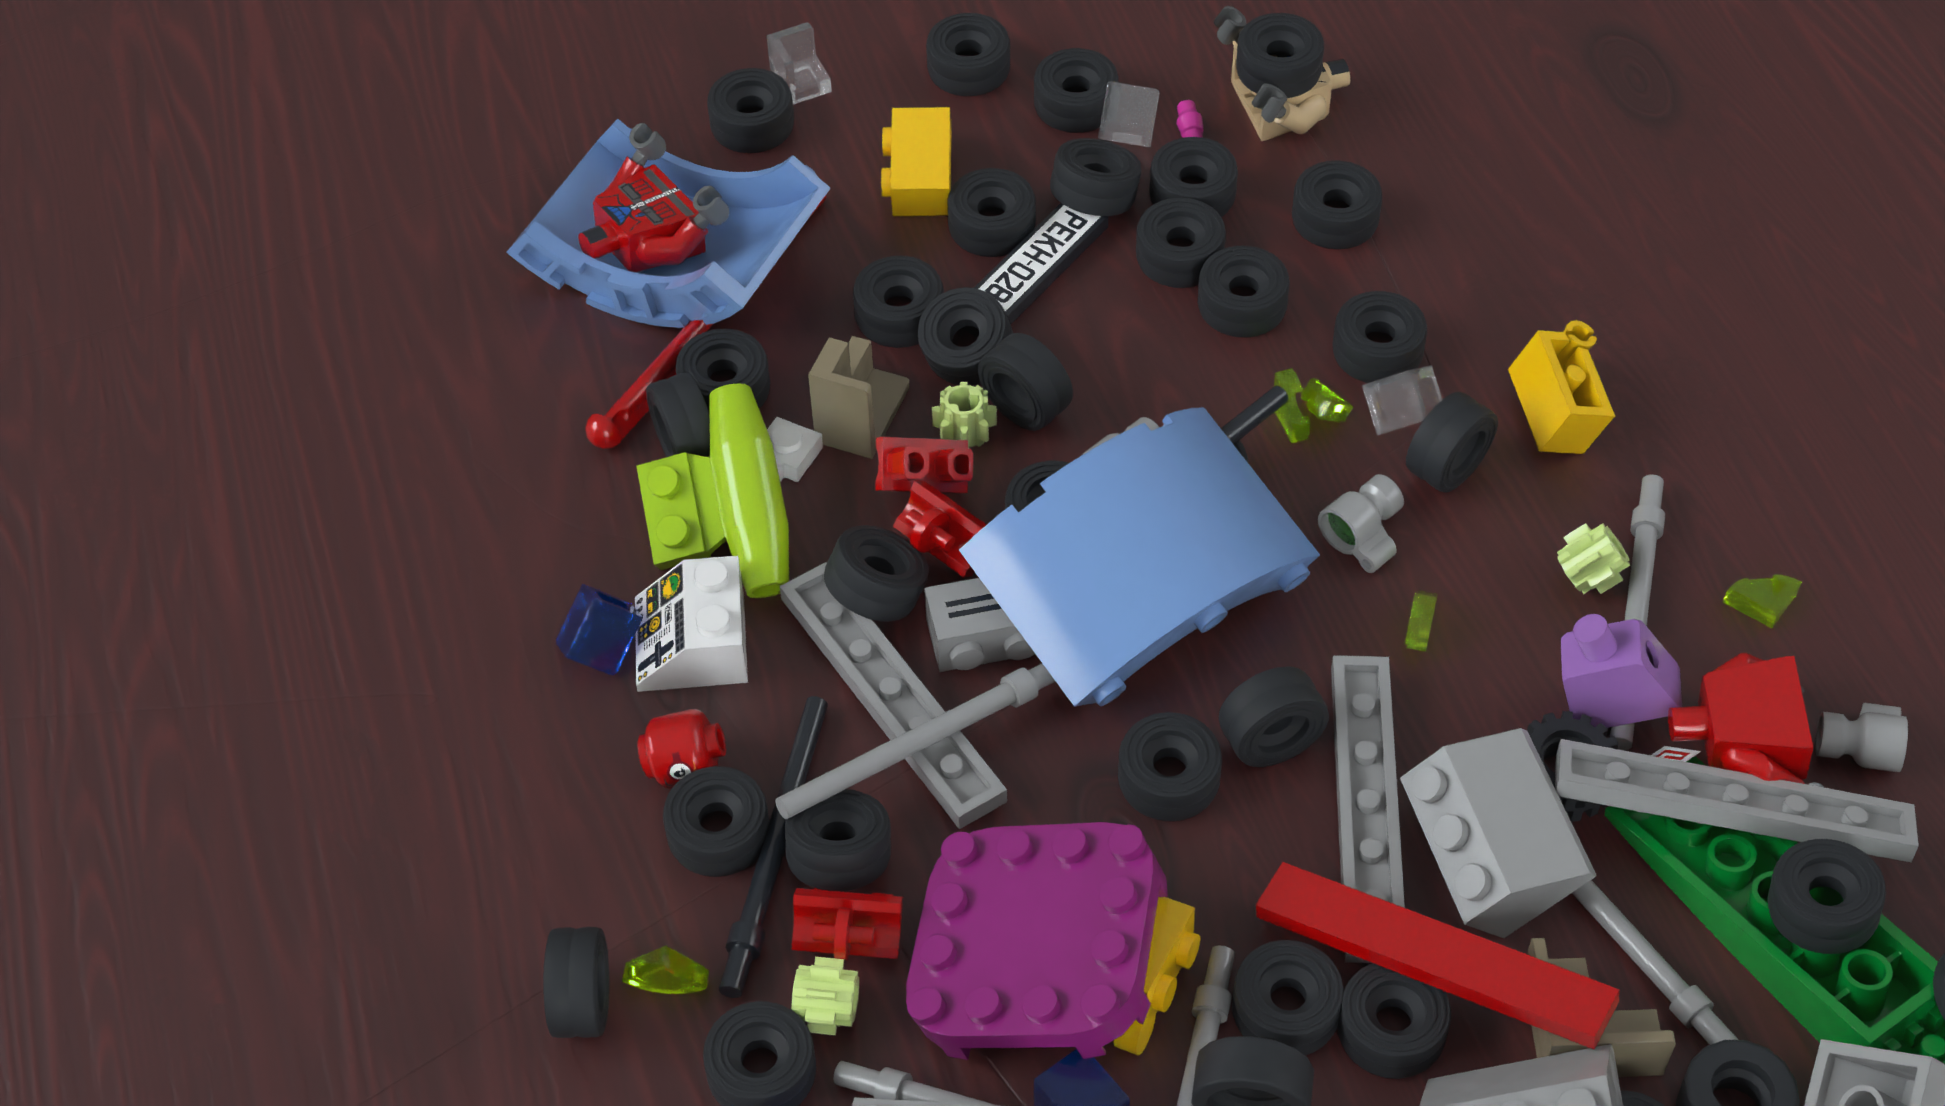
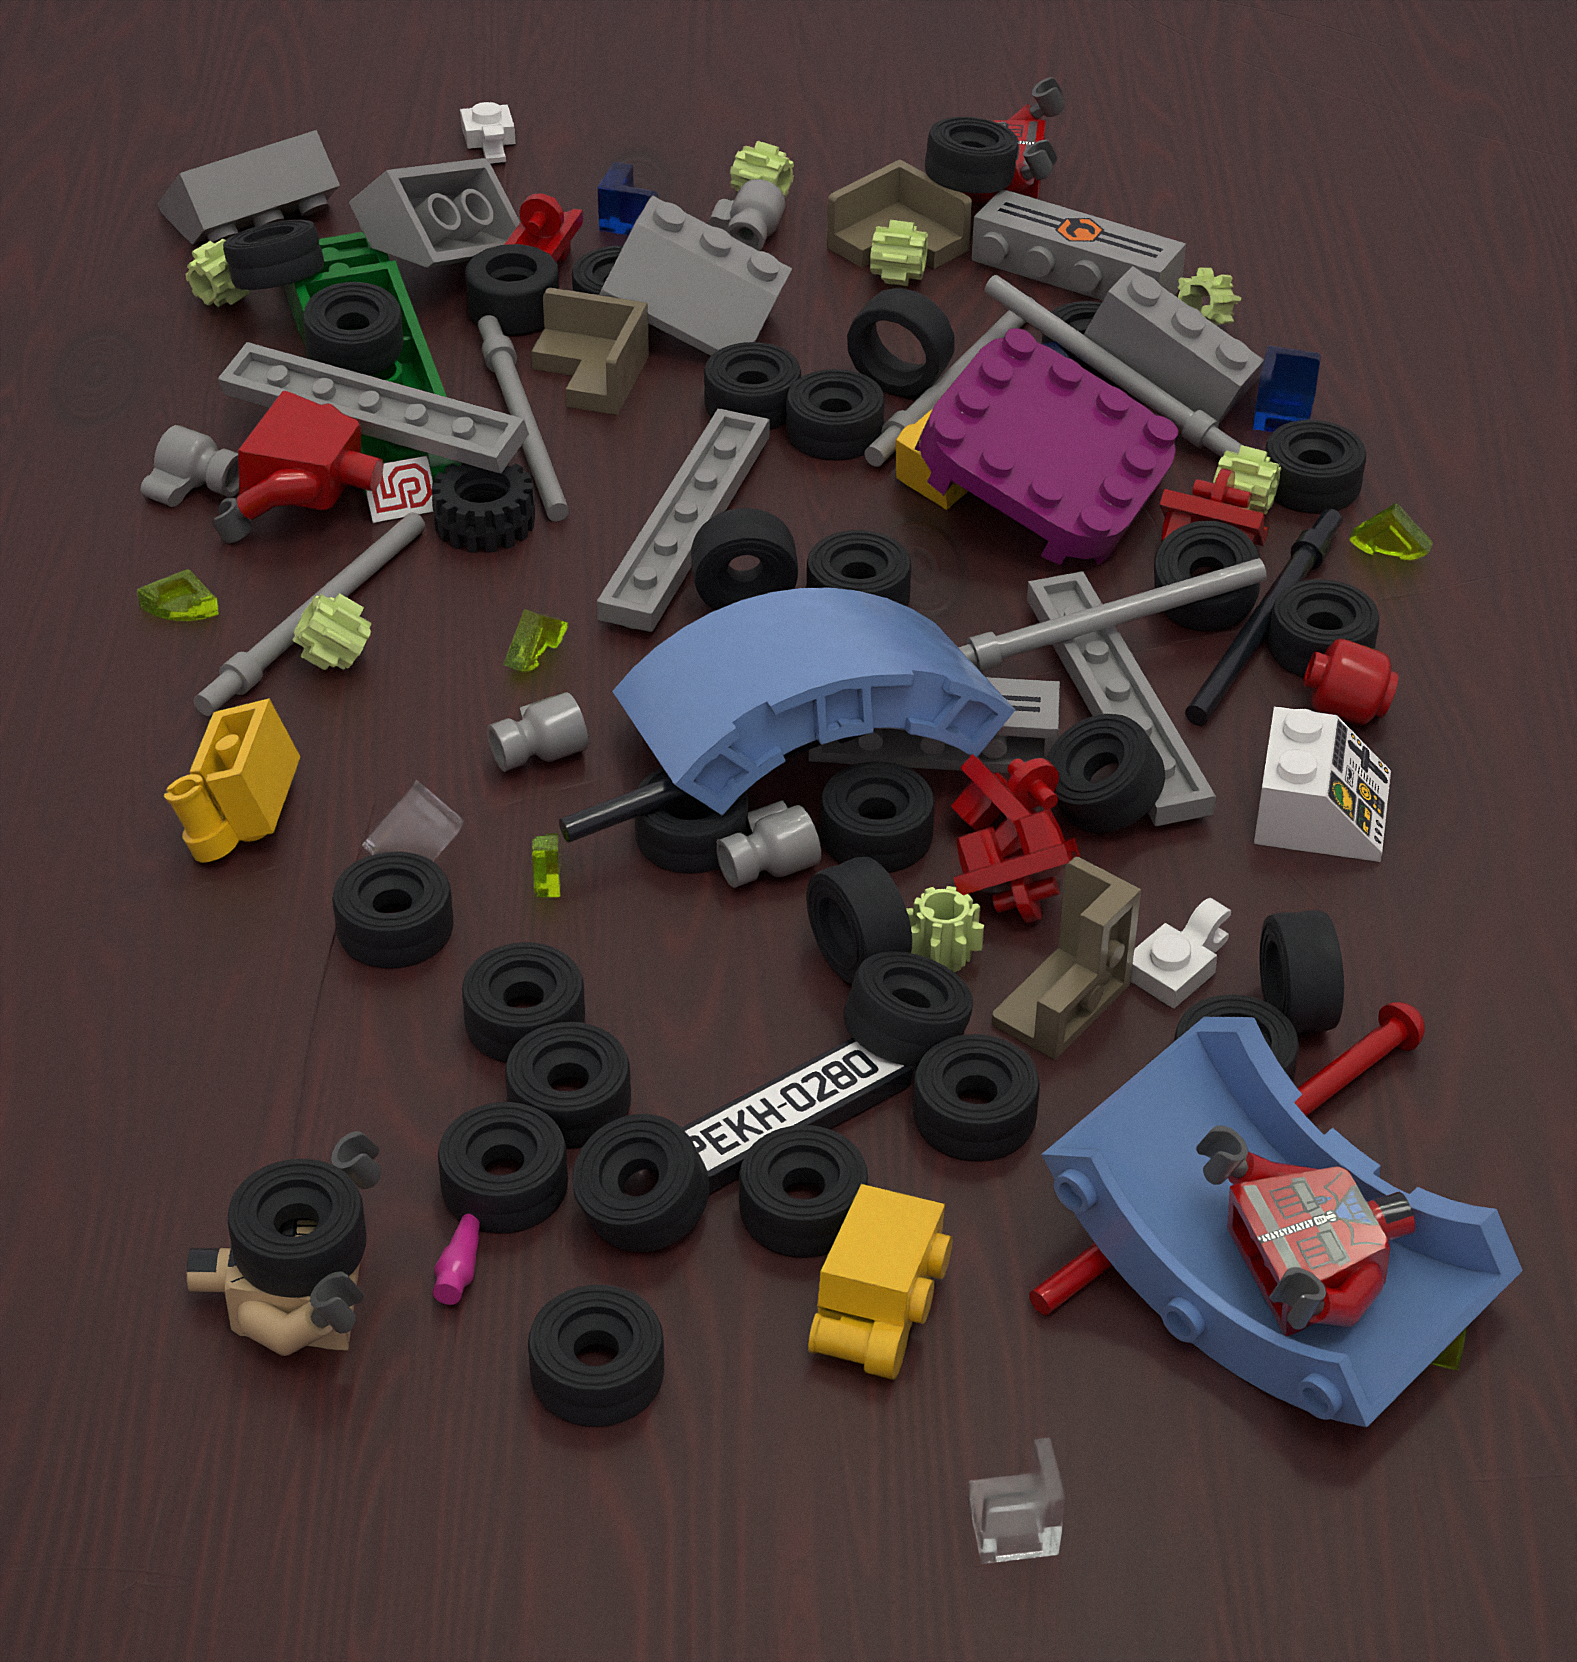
camera: 165 degrees left, 10 degrees down
(576, 982) = (1477, 516): black tyre -> none
(598, 630) = (1427, 808): clear blue panel -> none
(730, 497) = (1244, 877): lime plate -> none
(745, 90) = (1123, 1414): black tyre -> none
(967, 34) = (741, 1505): black tyre -> none
(1129, 114) = (560, 1245): clear panel -> none
(1324, 402) = (504, 854): clear neon green tile -> none
(1336, 226) = (331, 1053): black tyre -> none
(1439, 955) = (708, 372): red tile -> none
(1451, 441) = (387, 723): black tyre -> none
(1497, 830) = (594, 440): light grey slope -> none
(1618, 672) = (404, 507): medium lavender torso -> none

